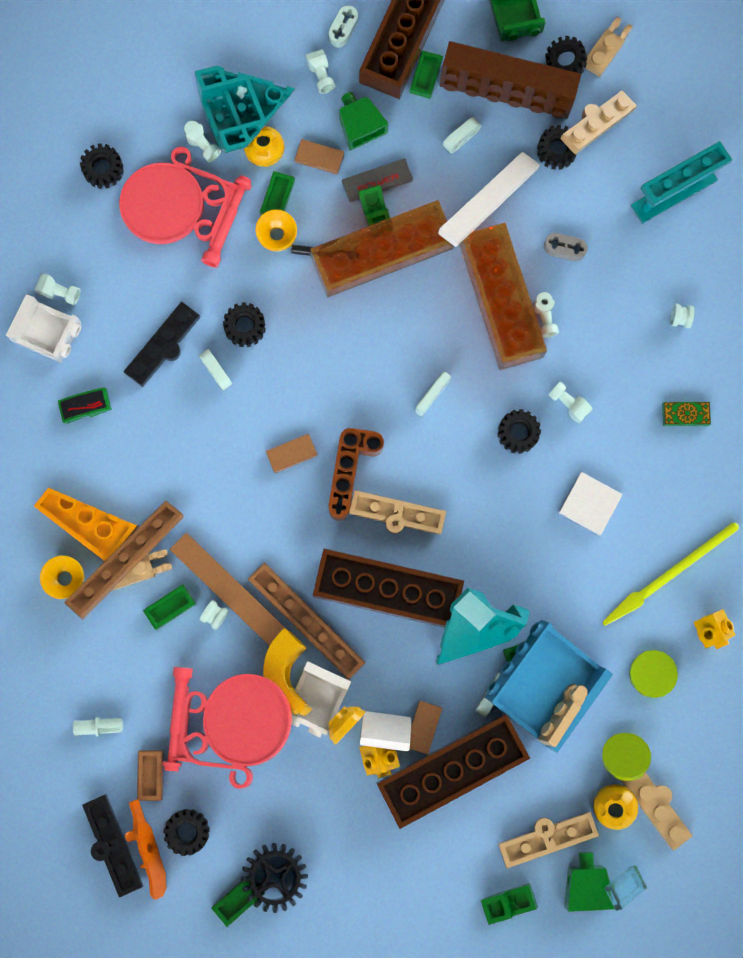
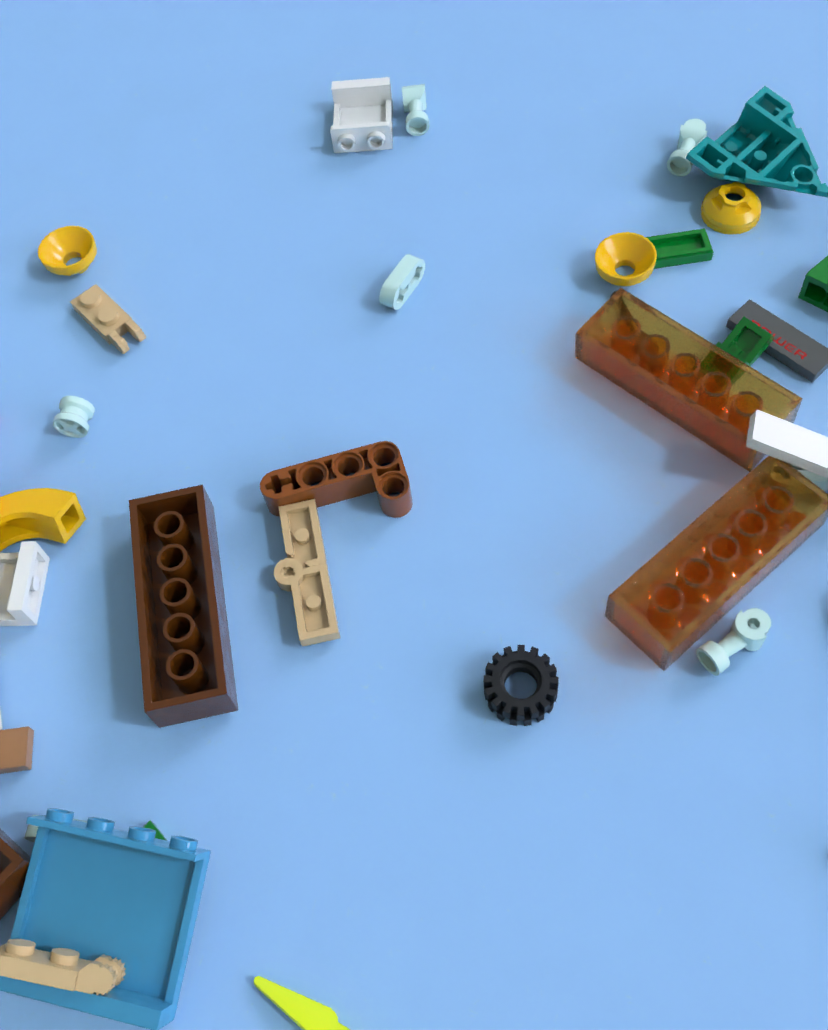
camera: 80 degrees right, 20 degrees down
(84, 404) = (292, 187): slope -> none
(90, 526) = (145, 250): light orange wing -> none
(95, 155) = (588, 81): black tyre -> none
(123, 560) = (112, 294): medium nougat tile -> none
(162, 345) = (407, 224): black hinge -> none
(166, 204) = (591, 153): coral piece -> none
(169, 607) = (72, 372): green tile -> none
(227, 588) = (118, 421): medium nougat tile -> none
(237, 313) = (480, 299): black tyre -> none
(291, 453) = (335, 410): medium nougat tile -> none
(306, 620) = (102, 534): medium nougat tile -> none
(319, 156) = (762, 267): medium nougat tile -> none
(432, 394) = (510, 536): light aqua tile -> none
(478, 626) = (146, 752): teal wedge -> none
(577, 406) = (611, 757): light aqua leg -> none
(590, 503) = (459, 860): white tile -> none
(686, 413) = (714, 966): tile -> none

